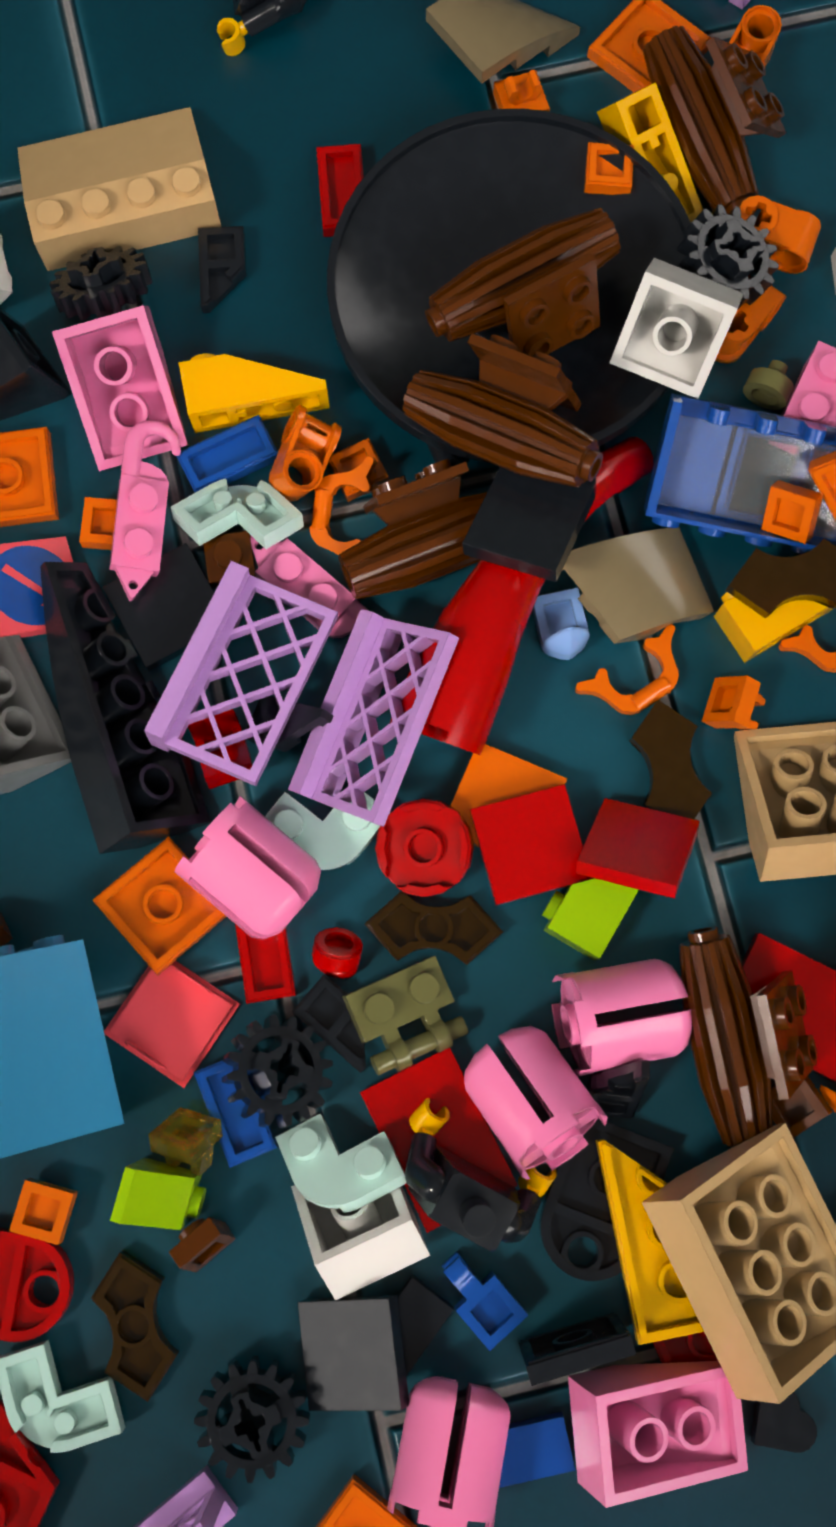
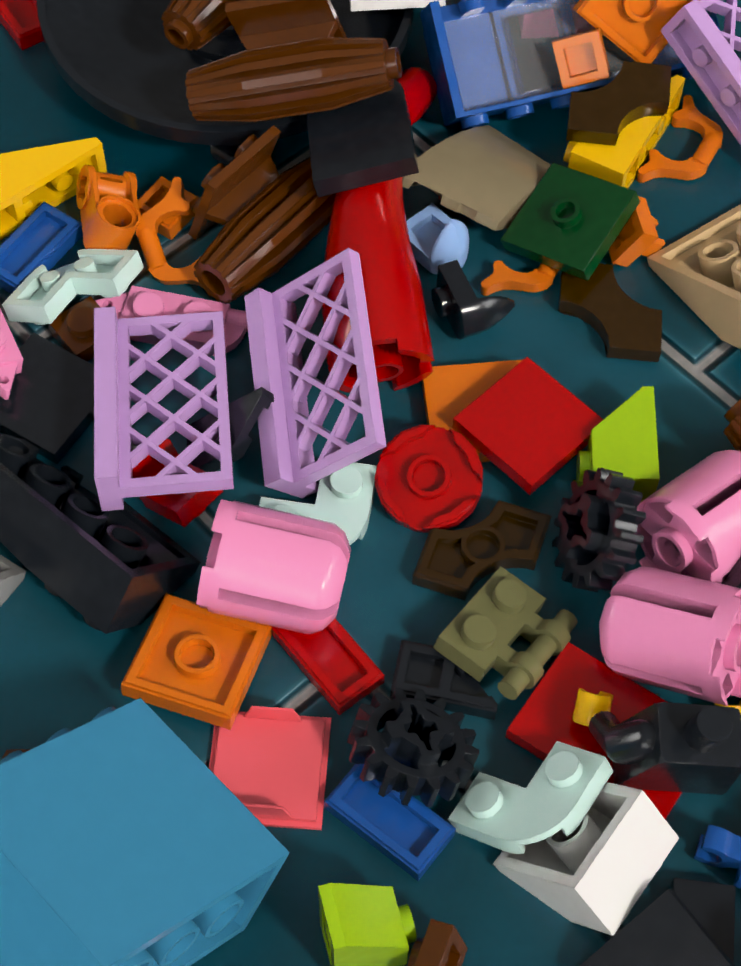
camera: 30 degrees left, 20 degrees down
(187, 1139) = (360, 858): clear yellow tile -> none
(337, 952) = (403, 609): red tile -> none
(521, 977) = (598, 530): none -> black gear
(541, 691) = (458, 303): none -> black plate
(638, 847) = (631, 372): red tile -> none
(682, 671) = (570, 221): none -> dark green plate

